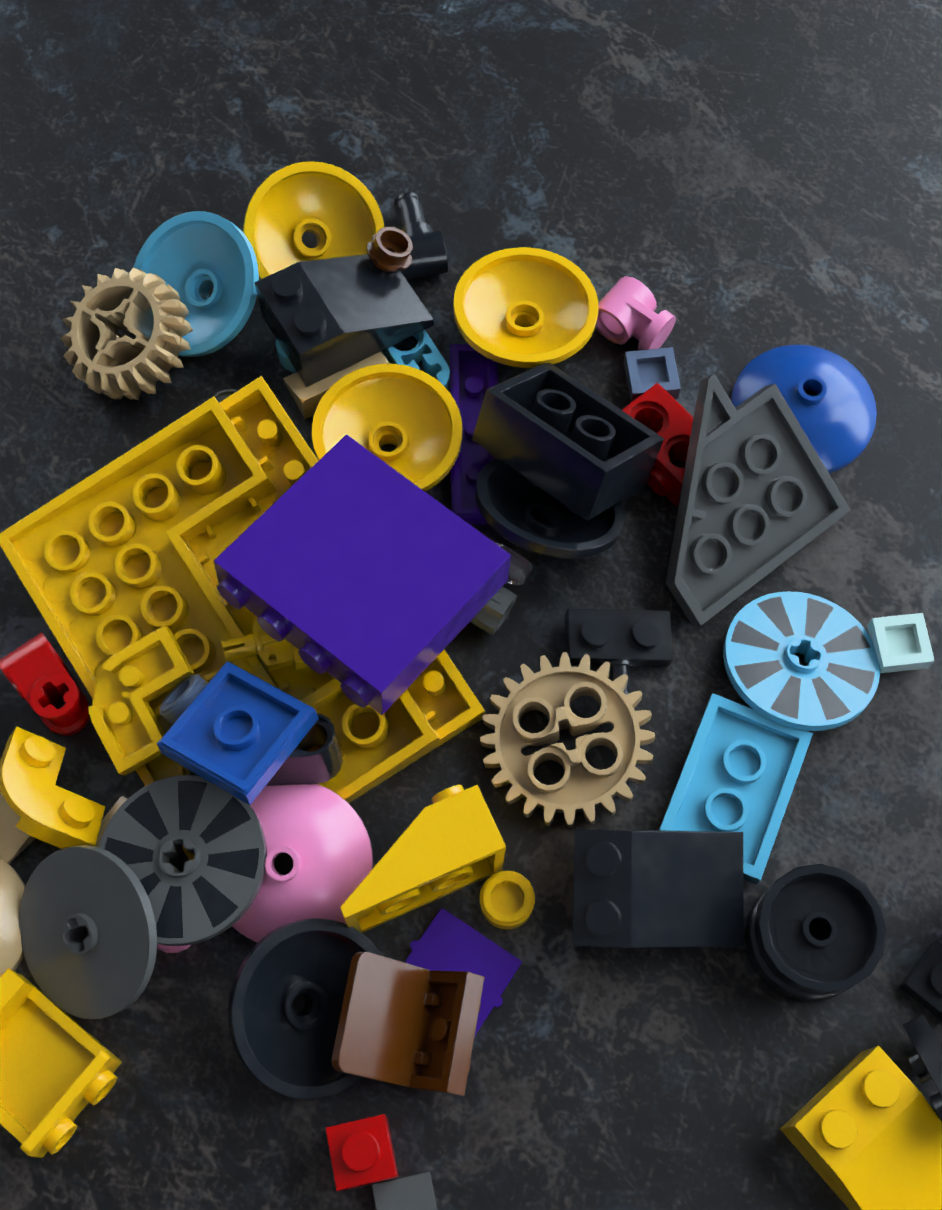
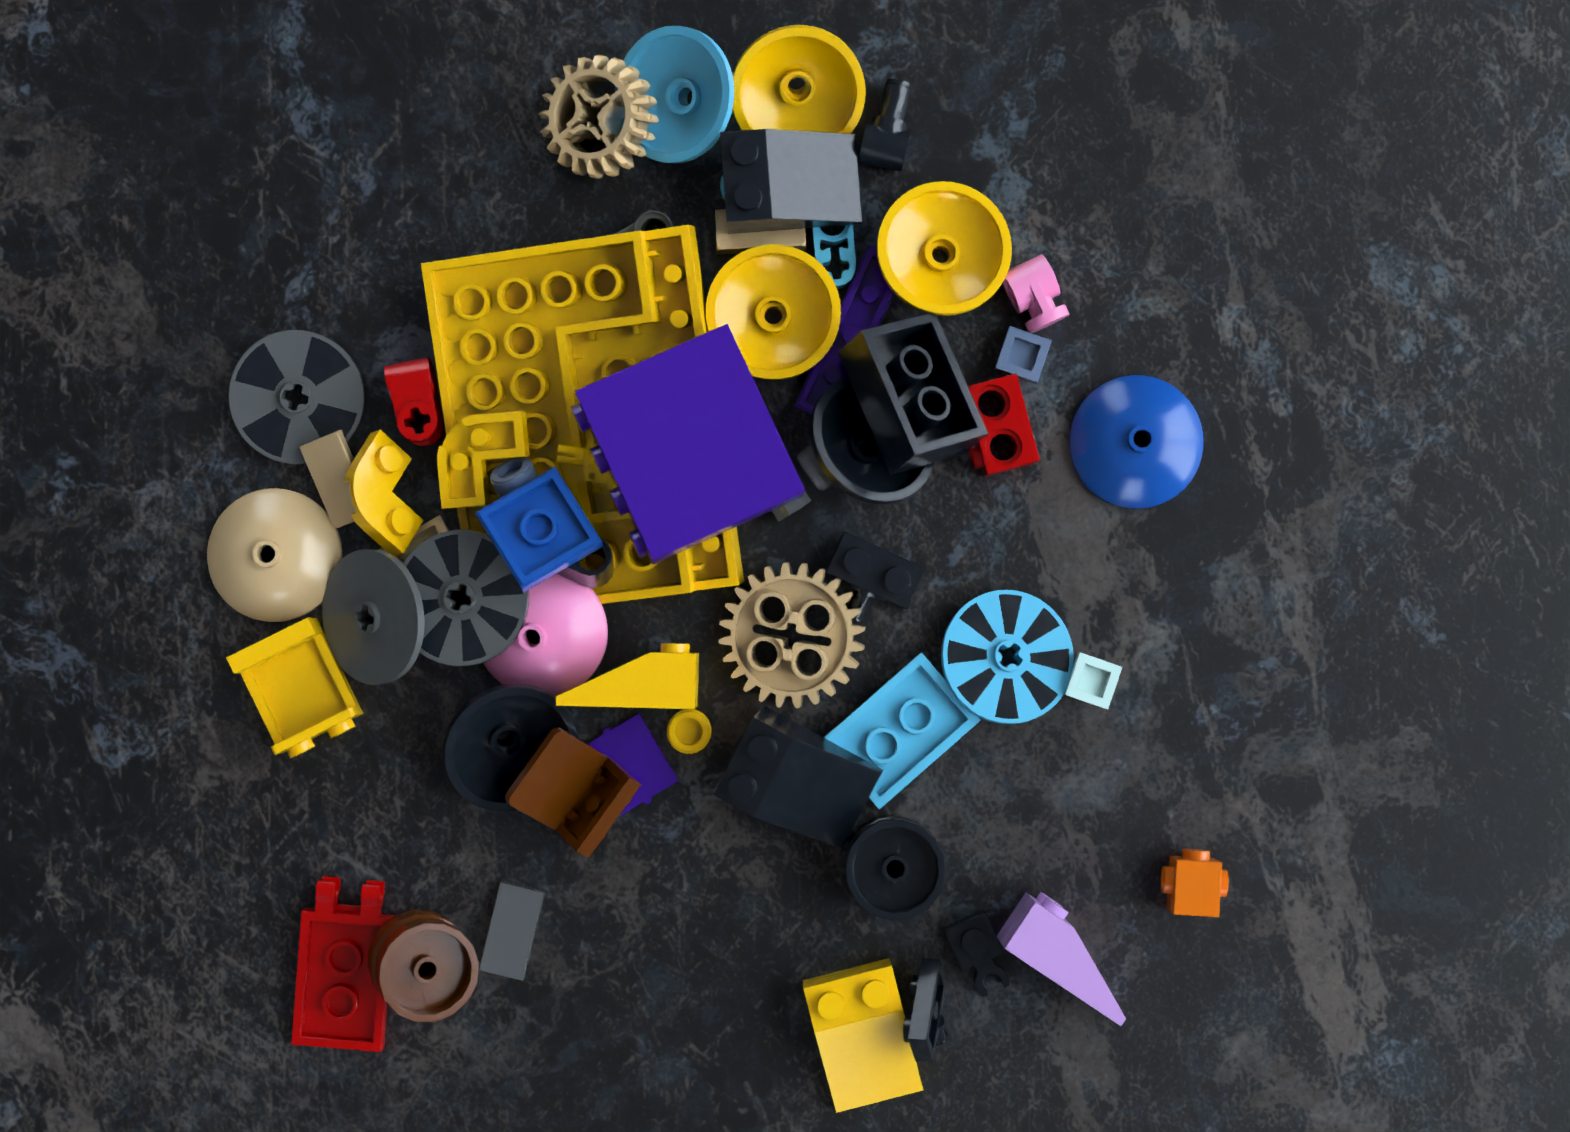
camera: 25 degrees right, 20 degrees up
(362, 1152) = (502, 860): red brick -> none
(390, 249) = (863, 140): reddish brown plate -> none
(745, 499) = (1033, 510): dark grey wing -> none

